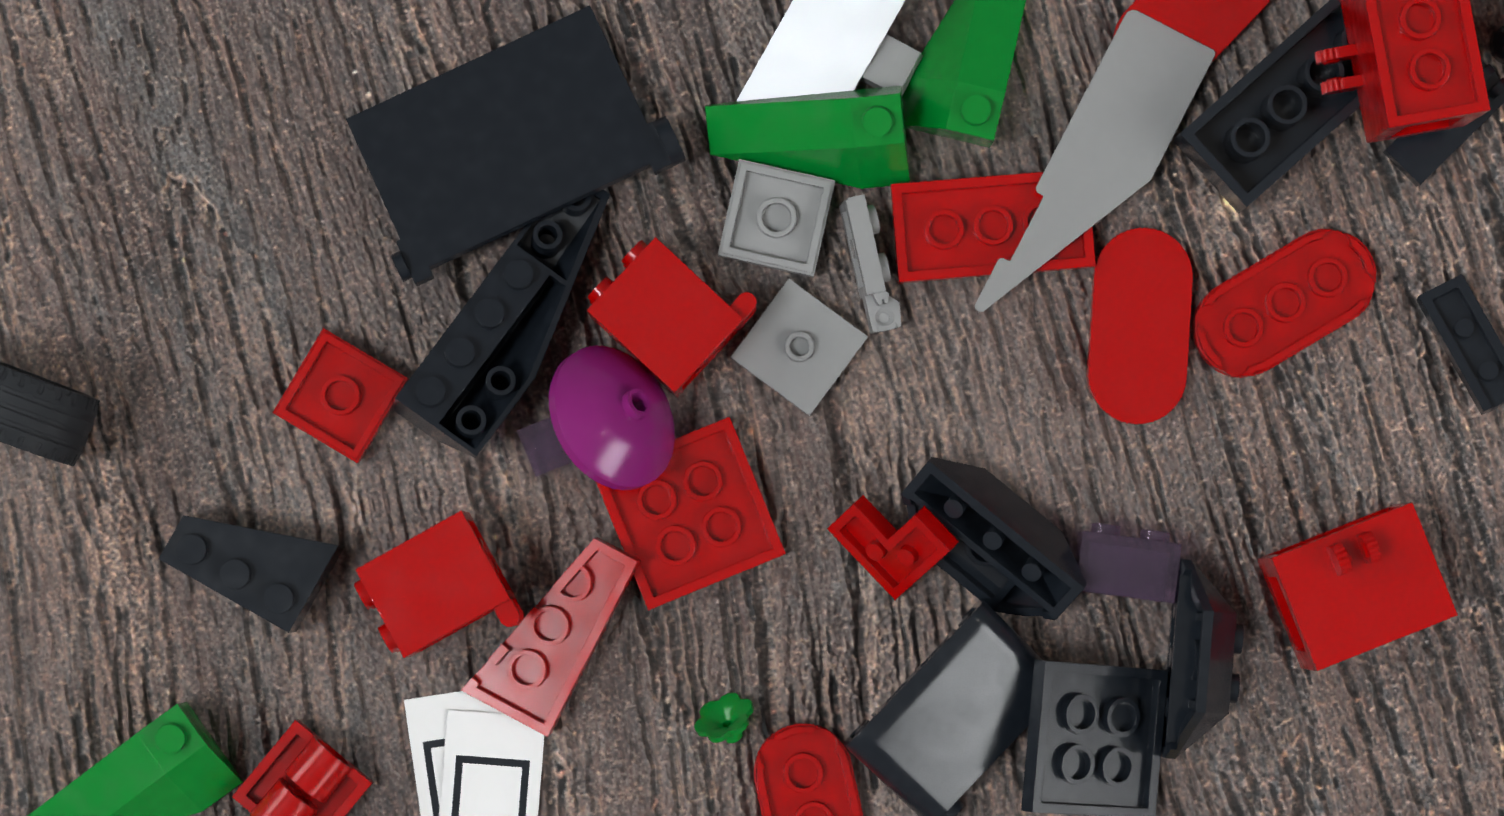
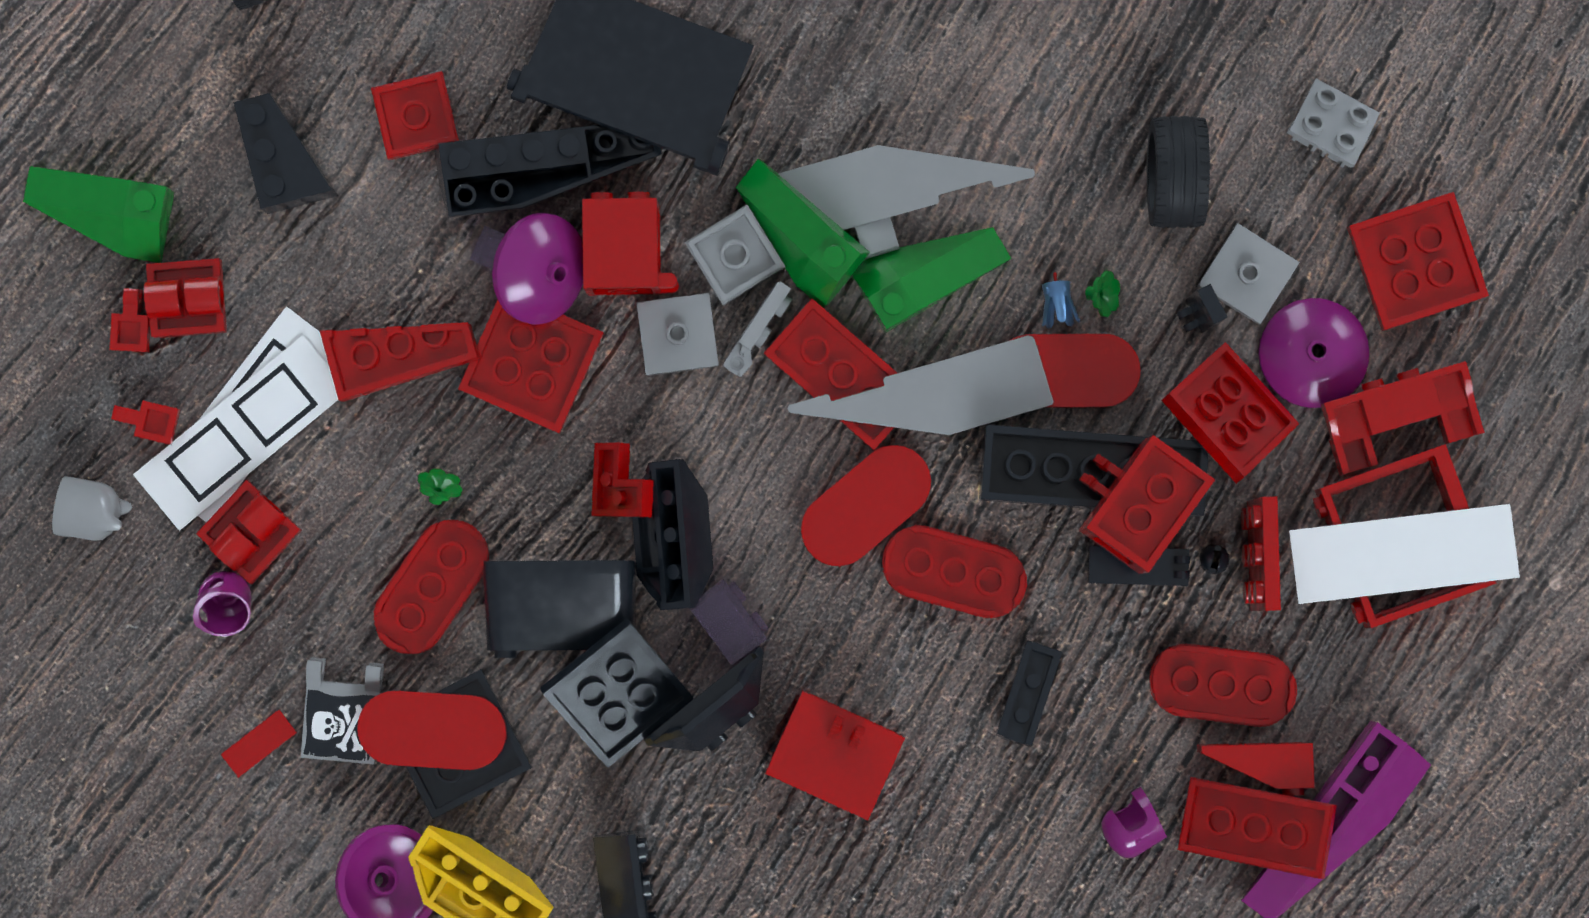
camera: 50 degrees right, 0 degrees up
(436, 586) = (361, 263): red container -> none

